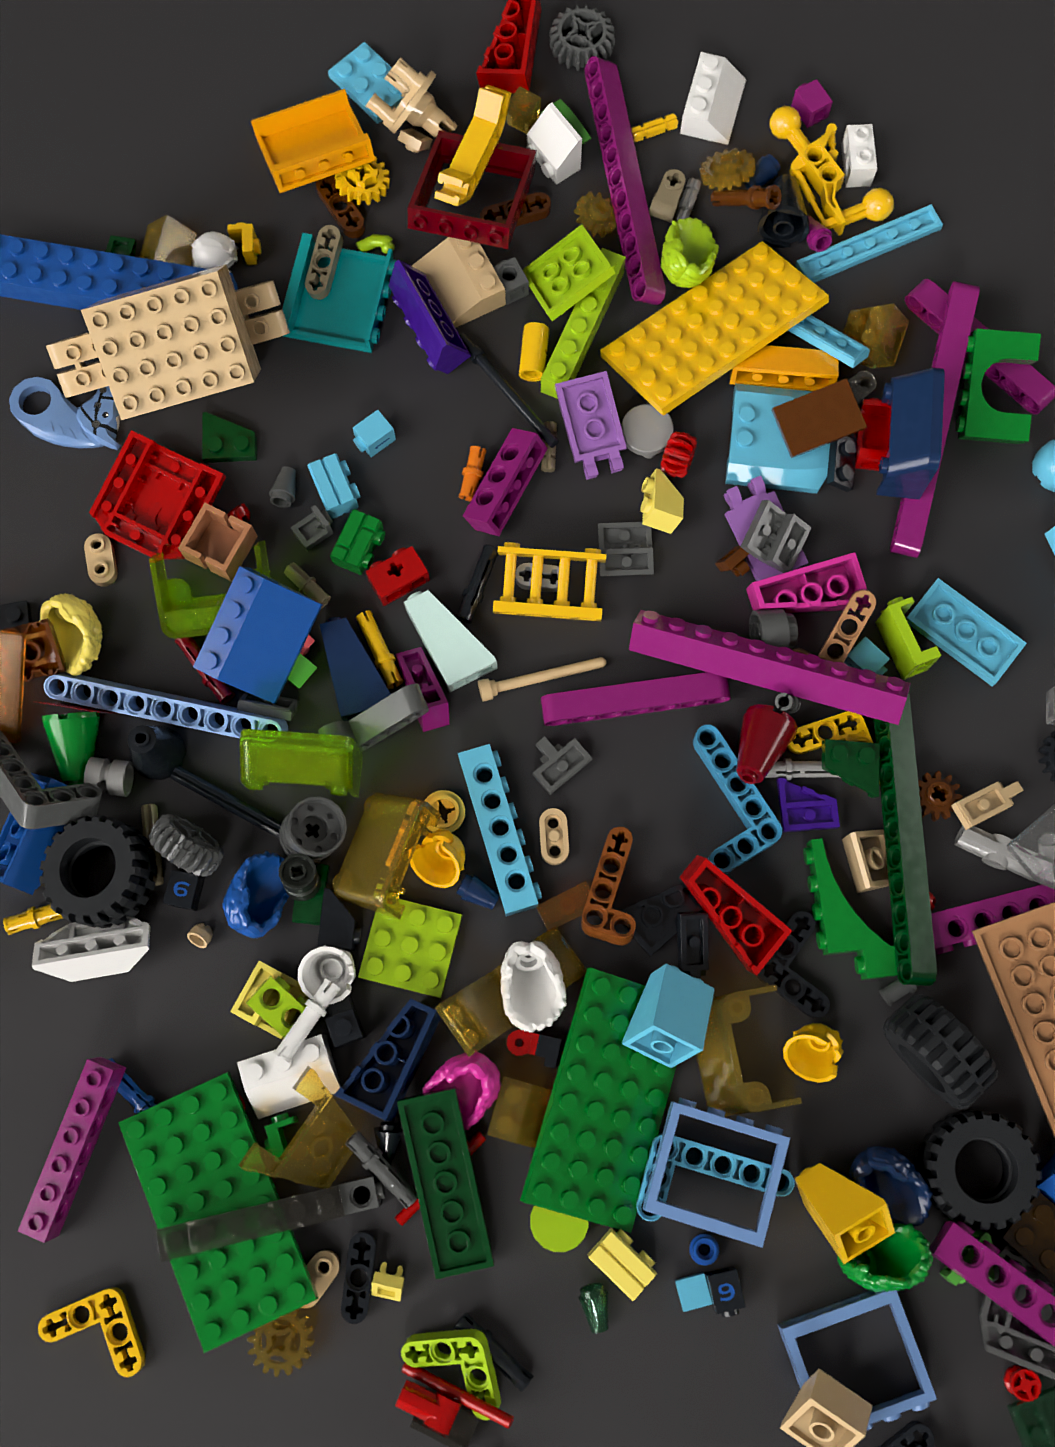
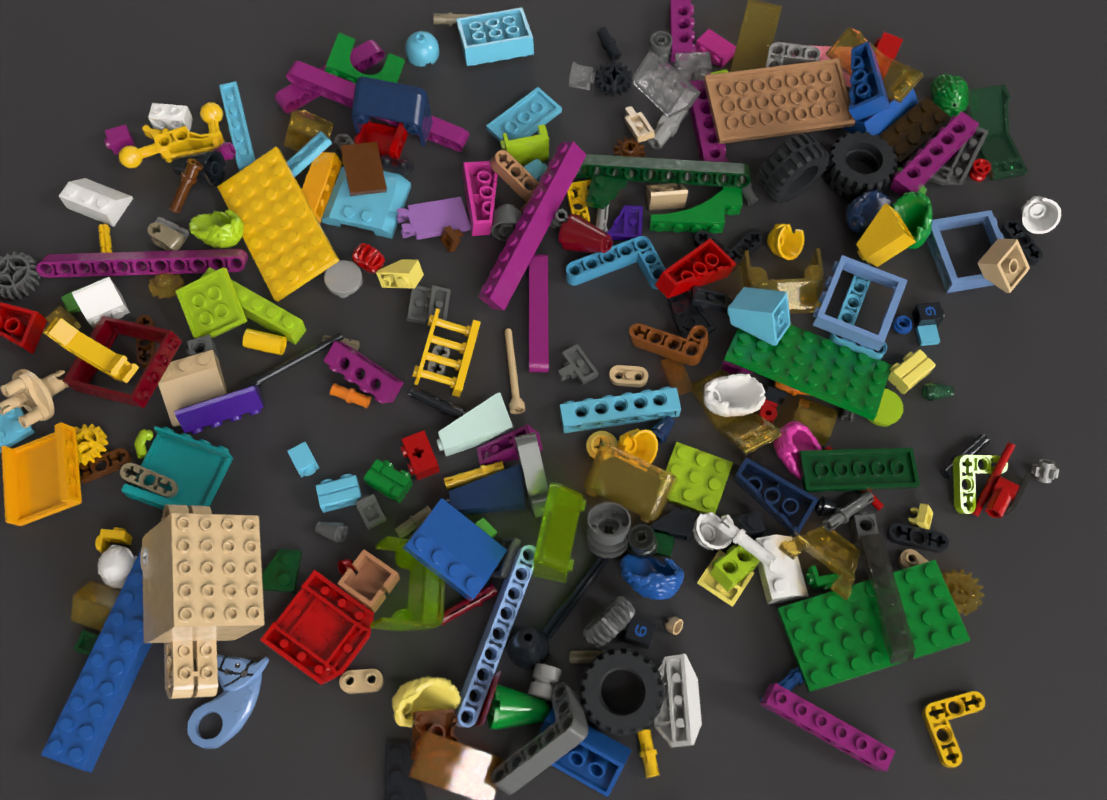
camera: 85 degrees left, 10 degrees down
(414, 140) = (63, 403): tan plate -> none
(591, 422) = (333, 307): medium lavender tile -> none
(727, 169) = (156, 196): clear yellow gear -> none
(766, 170) = (164, 178): dark blue cone -> none
(775, 537) = (441, 208): dark grey slope -> none

